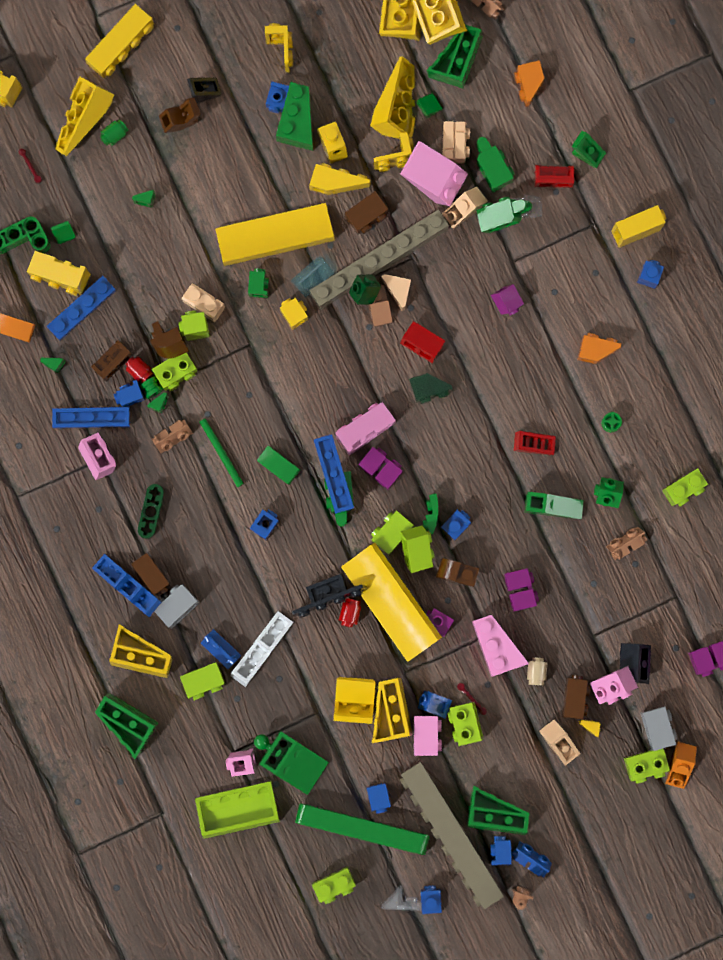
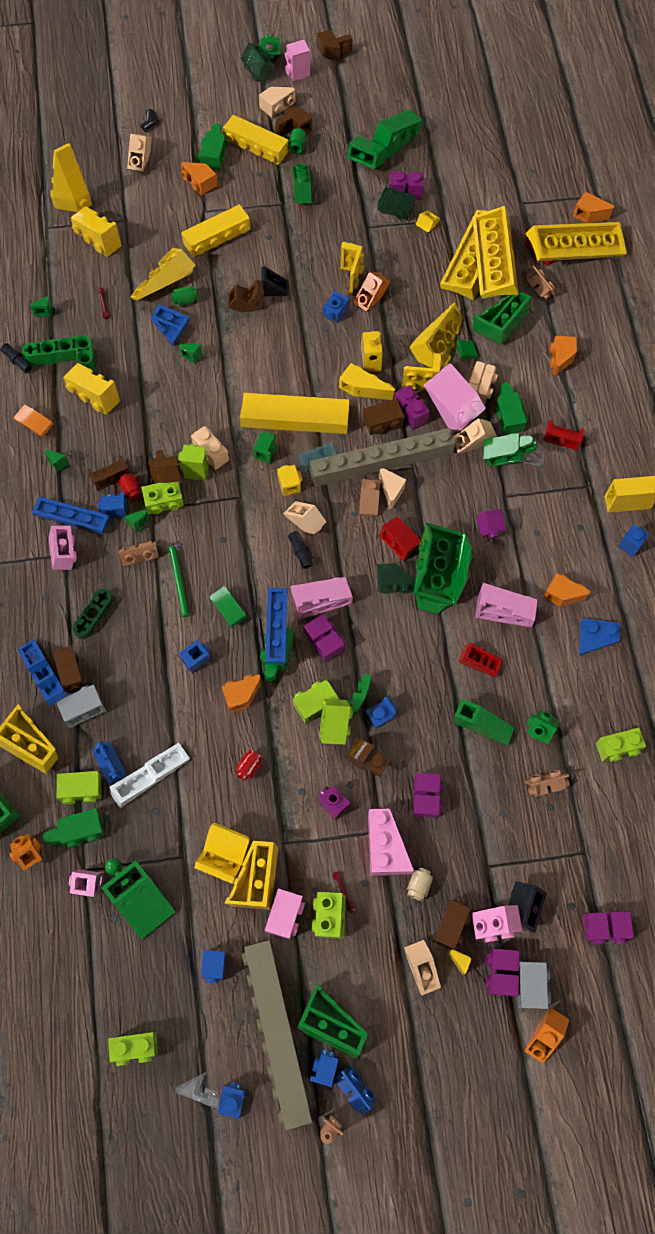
camera: 15 degrees right, 15 degrees down
(63, 232) = (109, 358): green slope -> none
(81, 308) = (100, 424): blue plate -> none
(110, 170) = (170, 323): none -> blue wing
(151, 388) = (135, 503): green wheel -> none
(178, 753) = (25, 851): none -> orange brick
(215, 718) = (76, 829): none -> green hinge
(237, 810) = (63, 932): lime slope -> none
(296, 118) = (345, 326): green wedge -> none
(310, 65) = (371, 290): none -> orange slope
(320, 547) = (241, 693): none -> orange slope
(322, 348) = (305, 517): none -> light nougat slope
(327, 592) = (232, 738): black bracket -> none
(328, 384) = (300, 550): none -> black pin
(362, 829) = (185, 995): green beam -> none
(365, 289) = (360, 473): dark green brick -> none
(391, 602) = (293, 767): yellow arch -> none
(398, 198) = (416, 412): none -> magenta piece
(434, 704) = (303, 884): blue bracket -> none
(472, 362) = (441, 567): none -> green slope
(544, 383) = (505, 606): none -> bright pink wedge
(588, 150) = (600, 420): green slope -> none
(614, 420) = (565, 661): green wheel -> none
(631, 735) = (500, 983): none -> magenta piece
(638, 383) = (597, 634): none -> blue wing
(646, 765) = (509, 1022): lime brick -> none

